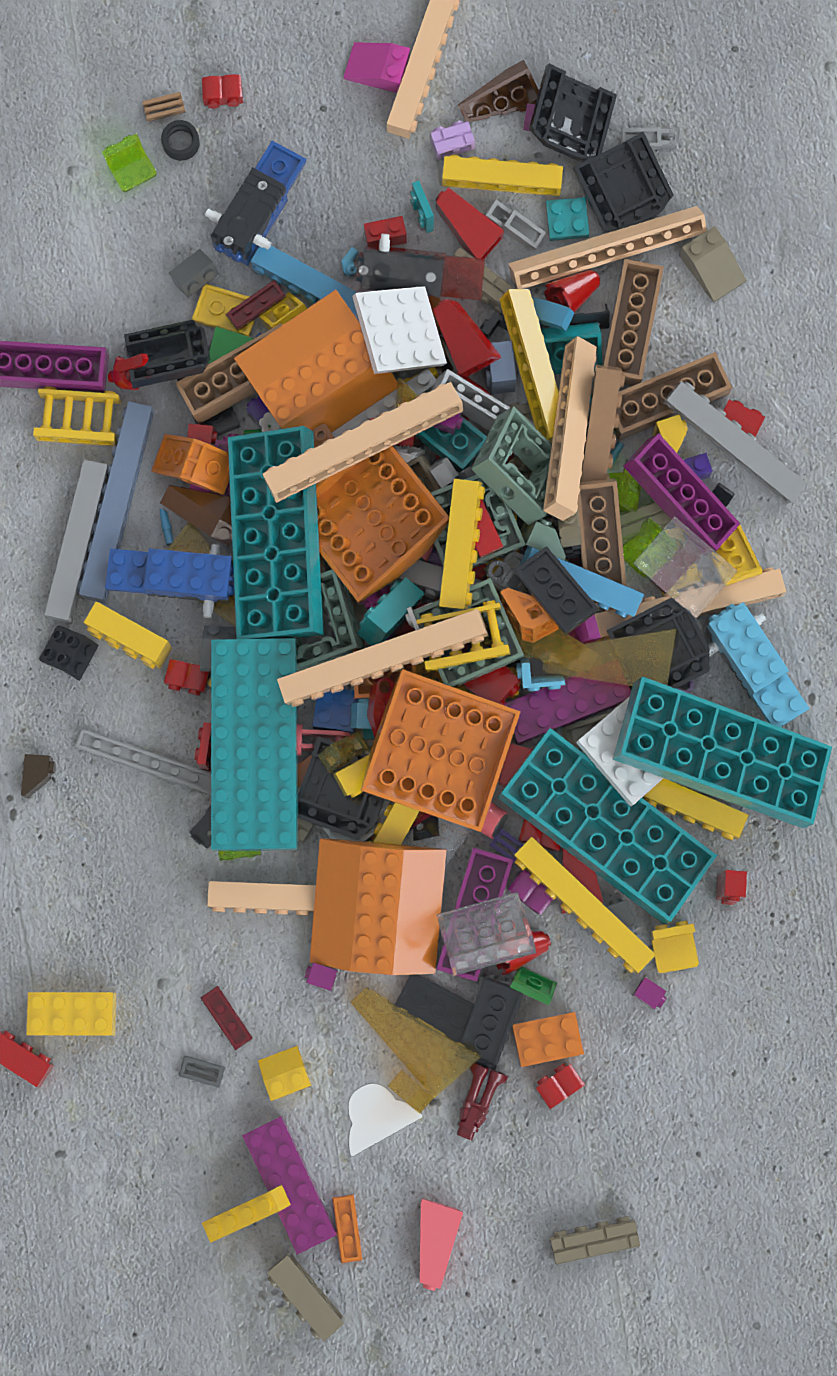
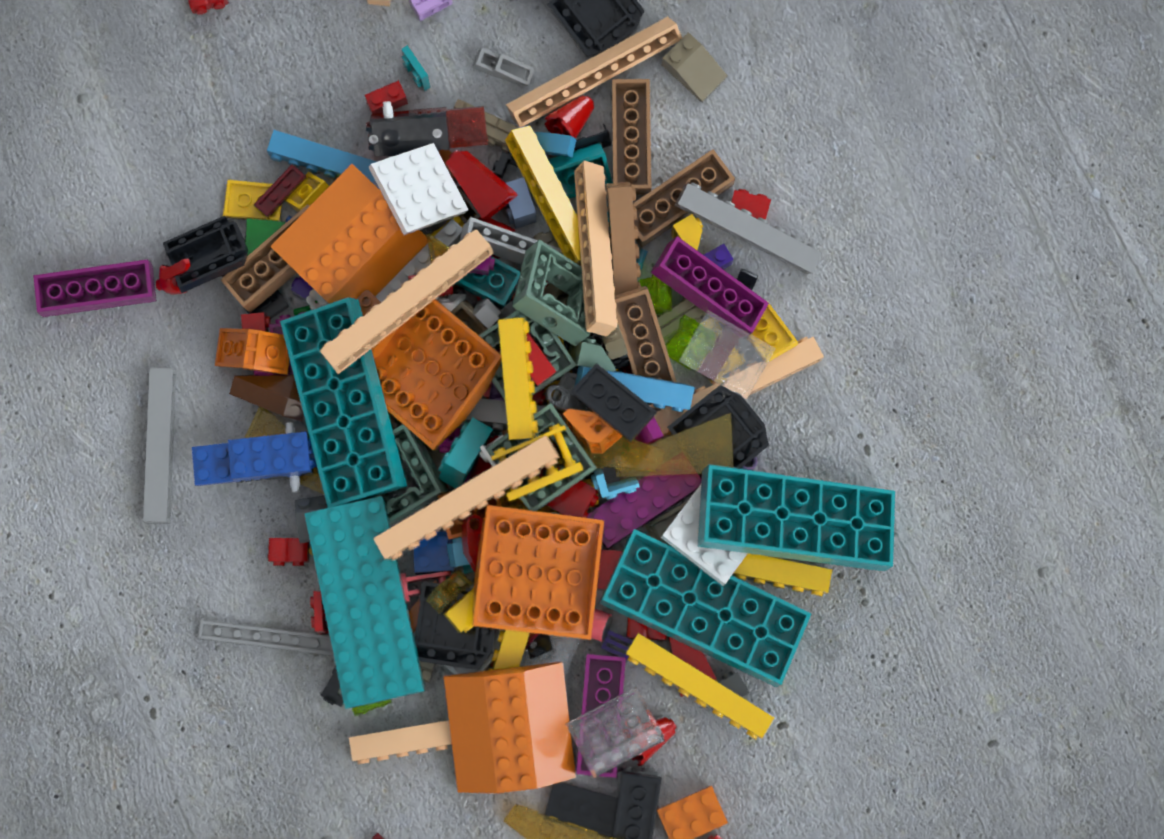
camera: 15 degrees left, 0 degrees up
(36, 773) = (166, 670): dark brown slope -> none
(68, 652) = (173, 550): black bracket -> none
(85, 435) = (146, 344): yellow fence -> none
(117, 499) = (188, 398): sand blue brick -> none
(127, 635) = (222, 523): yellow brick -> none
(129, 163) = (133, 81): clear neon green bracket -> none
(163, 103) = (155, 14): medium nougat tile -> none
(166, 527) = (239, 414): dark azure piece -> none
(187, 153) = (170, 38): black tyre -> none
(193, 273) = (216, 172): dark grey brick -> none
(256, 204) = (261, 97): piece -> none
(321, 976) = (471, 803): magenta brick -> none
(348, 262) = (357, 134): medium azure arm -> none
(470, 227) = (462, 76): red slope -> none
(502, 175) = (483, 23): yellow brick -> none
(530, 893) = (647, 684): magenta brick -> none
(533, 985) = (669, 769): green tile -> none
(567, 219) = (551, 52): teal plate -> none
(650, 994) = (776, 753): magenta brick -> none
(674, 947) = (790, 706): yellow bracket -> none
(731, 886) = (830, 640): red brick -> none
(755, 663) = (809, 429): medium azure piece -> none

